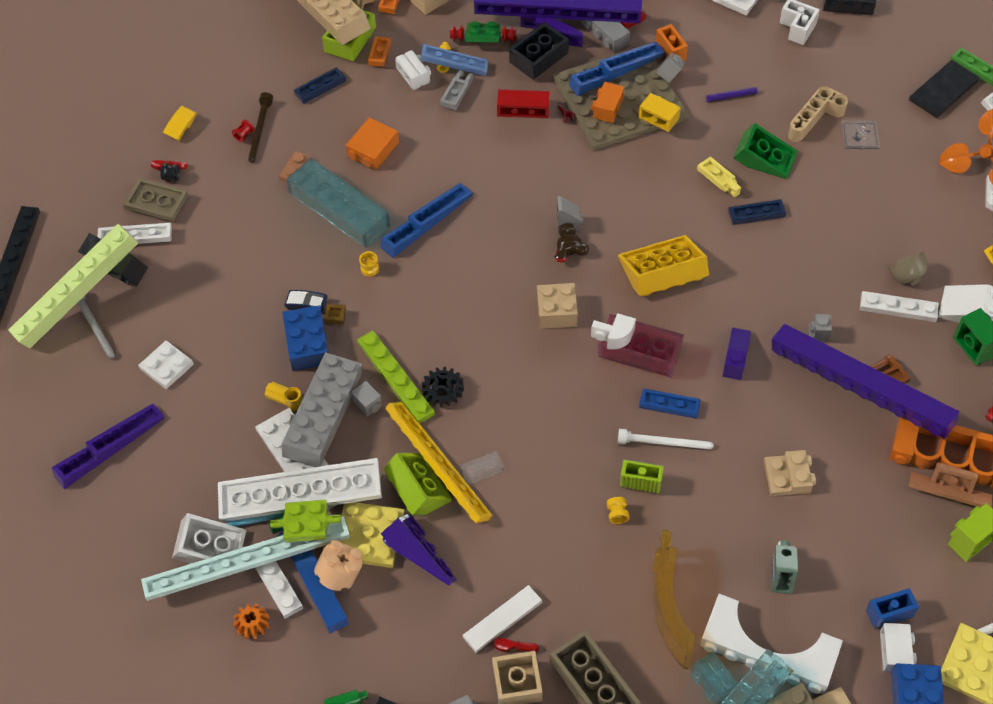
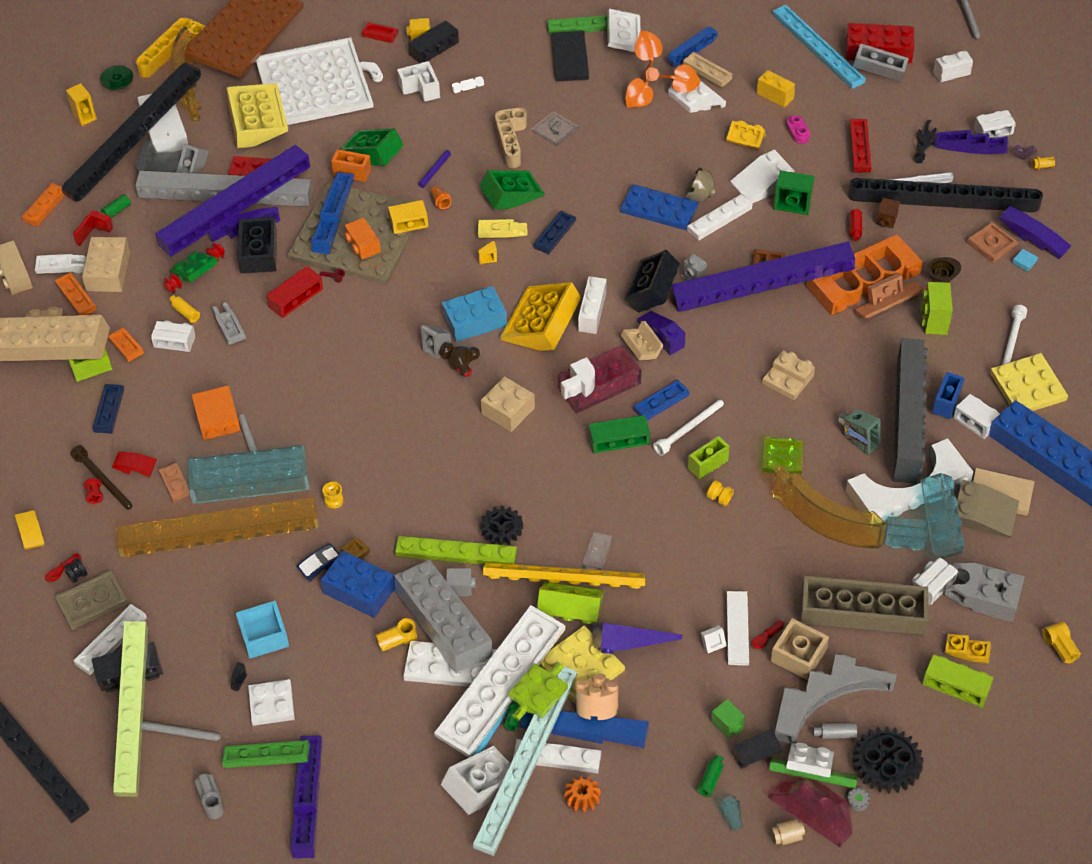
camera: 50 degrees left, 5 degrees down
(53, 391) = (209, 795): none -> light grey piece
(119, 394) = (266, 754): none -> bright green tile
(167, 328) = (238, 677): none -> black tile
(213, 311) = (262, 629): none -> medium azure piece
(279, 221) = (217, 527): none -> clear yellow brick
(287, 134) = (137, 462): none -> red slope
(374, 176) = (247, 433): none -> light grey bar
(406, 675) = (728, 719): none -> bright green brick
(424, 220) = (330, 432): blue slope -> none
(454, 60) = (199, 302): medium blue tile -> none
(472, 608) = (713, 639): none -> white tile
(604, 398) = (619, 434): none -> green brick
(618, 221) = (474, 314): none -> dark azure brick
(670, 67) = (373, 181): light grey brick -> none
(686, 186) = (488, 253): none -> yellow slope
(701, 528) = (782, 453): none -> clear neon green plate
(705, 119) = (441, 198): none -> orange cone
(707, 43) = (378, 143): none -> green slope
(709, 287) = (592, 305): none -> white brick
(709, 347) = (643, 341): none -> tan bracket
(772, 308) = (652, 281): none -> black brick
(835, 50) = (467, 84): none -> white axle
(841, 588) = (910, 411): none -> dark grey brick
(861, 259) = (659, 207): none -> blue plate

